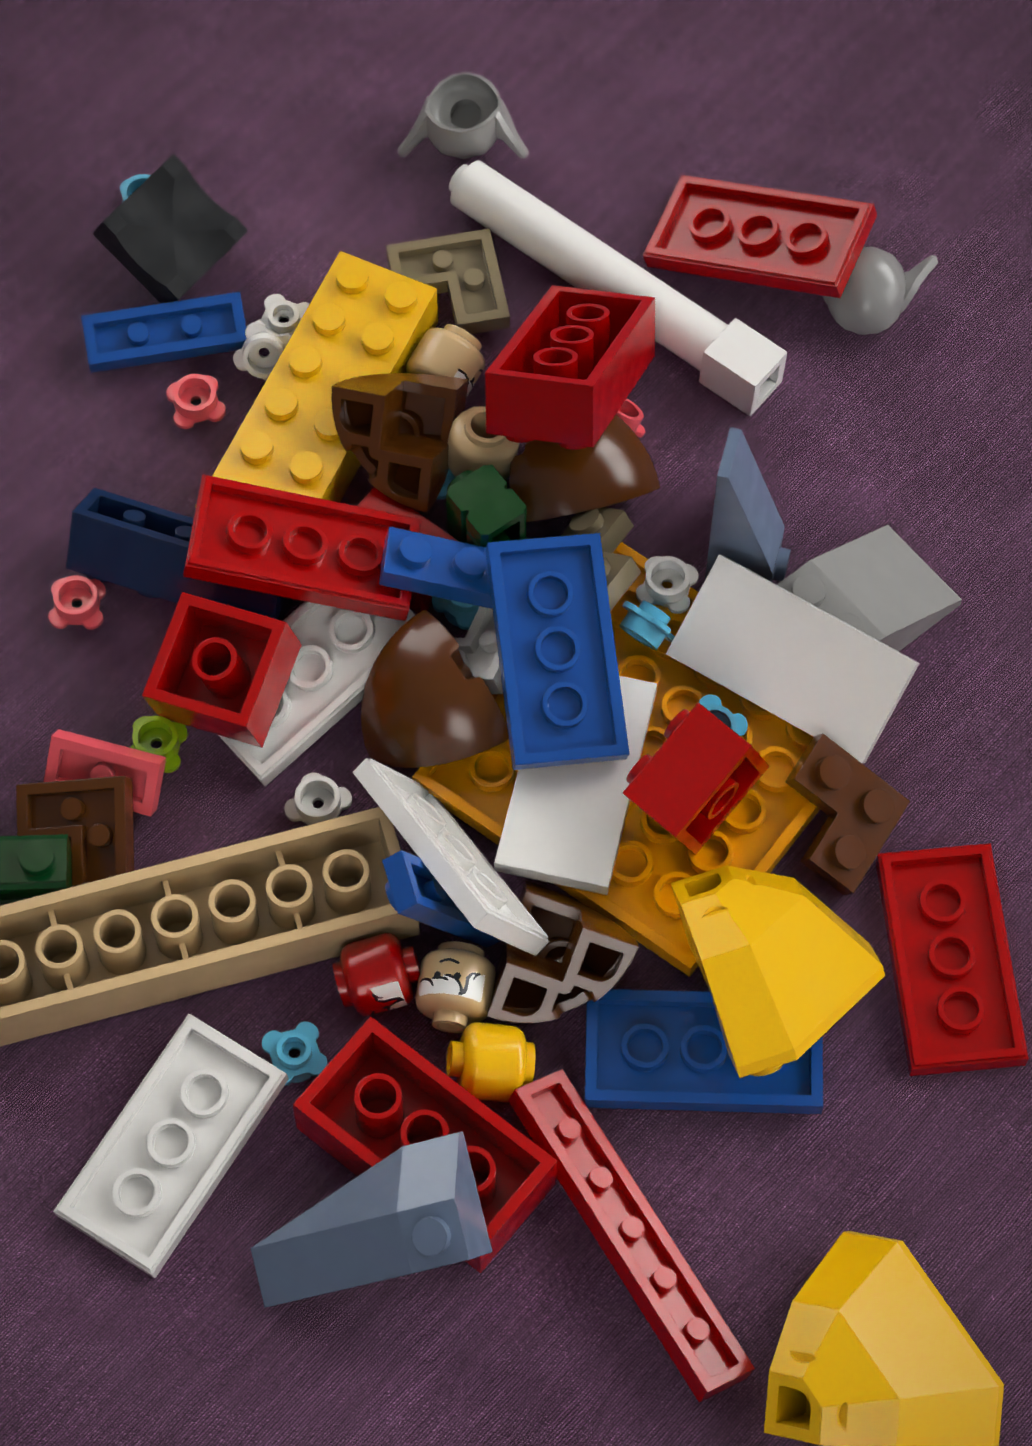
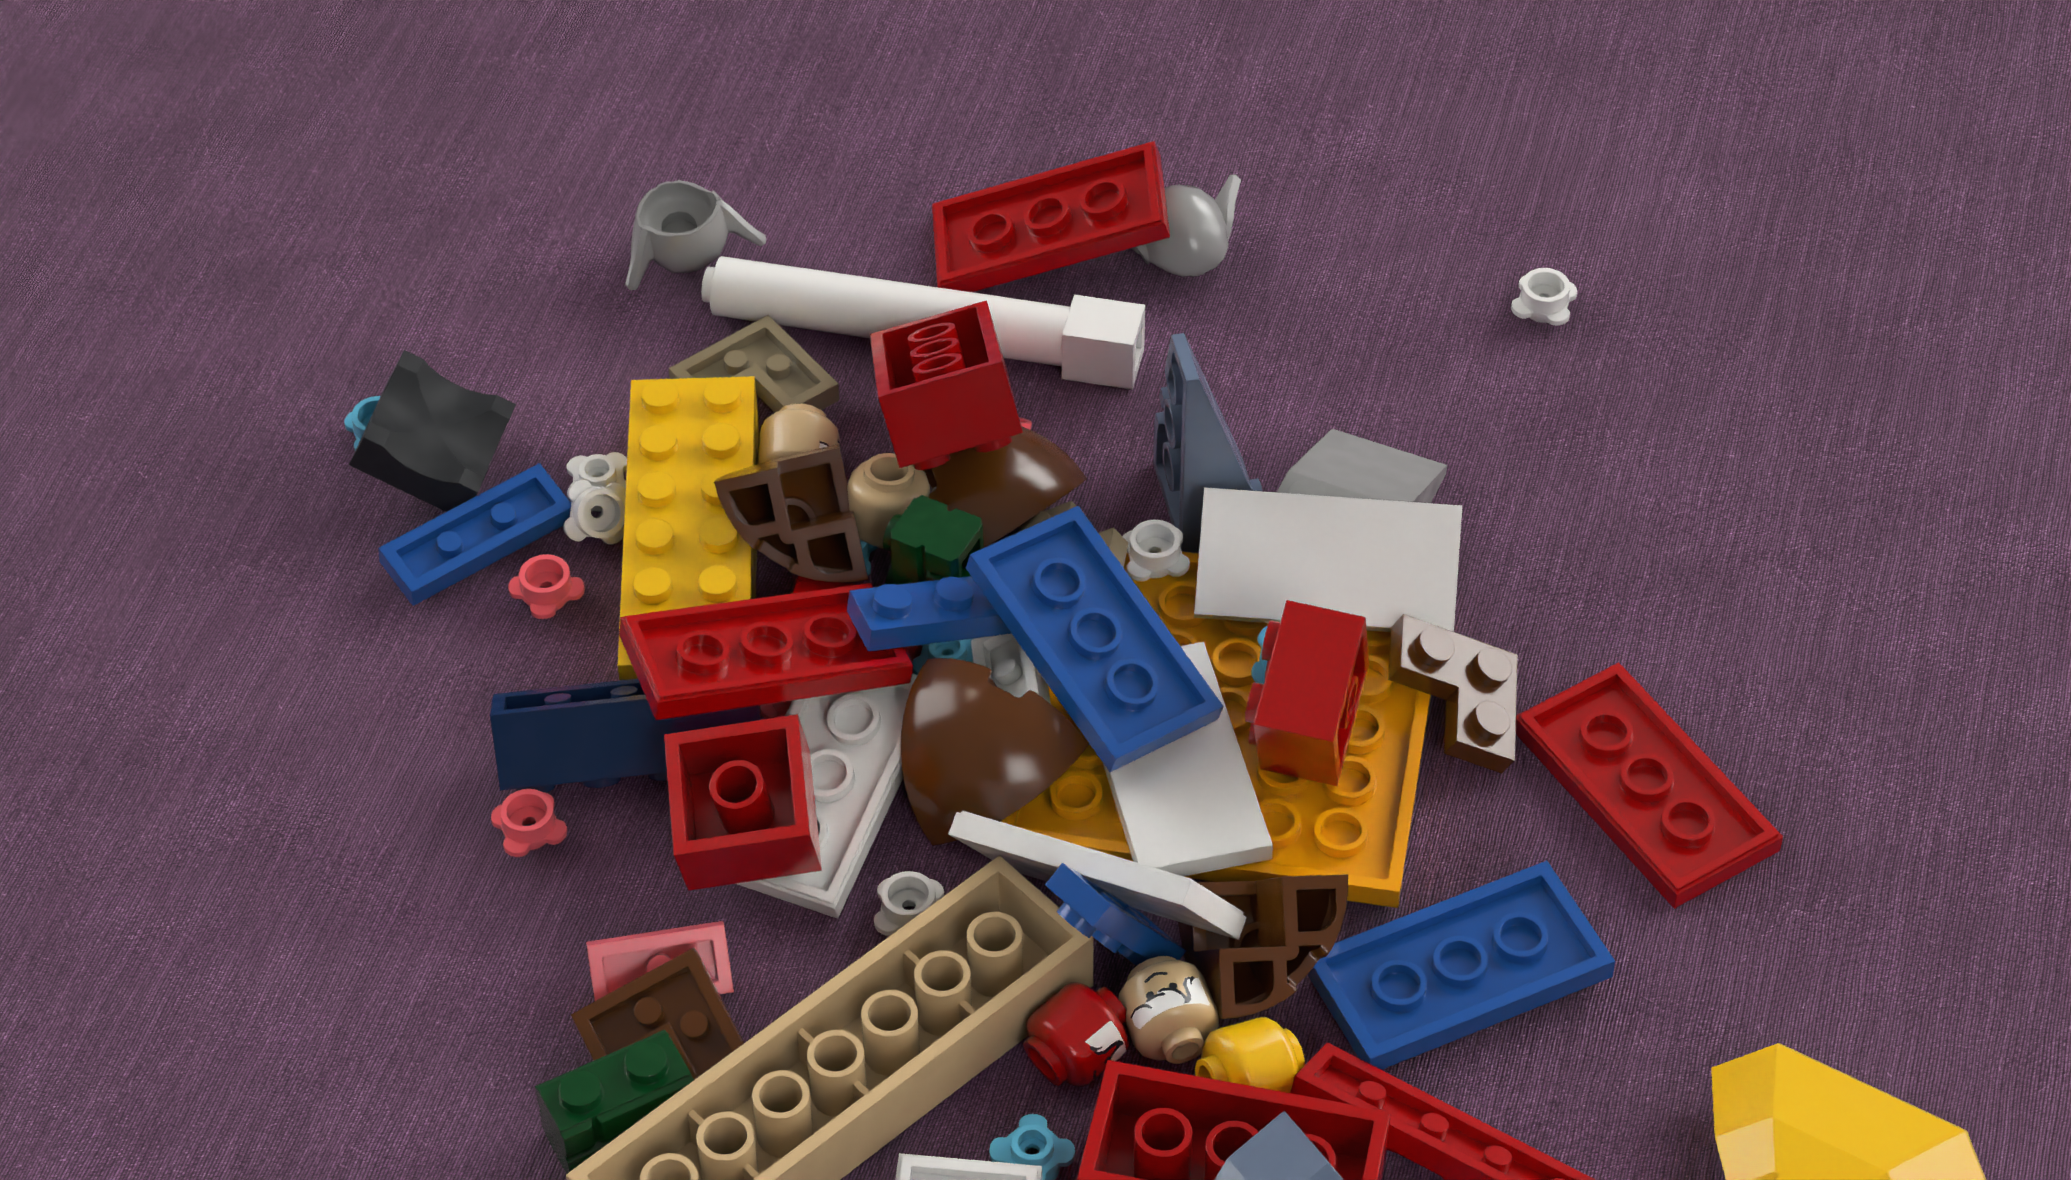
camera: 25 degrees left, 15 degrees down
(158, 728) = (697, 904): lime plate -> none
(646, 624) = (1164, 590): medium azure plate -> none
(772, 962) = (1496, 829): yellow brick -> none

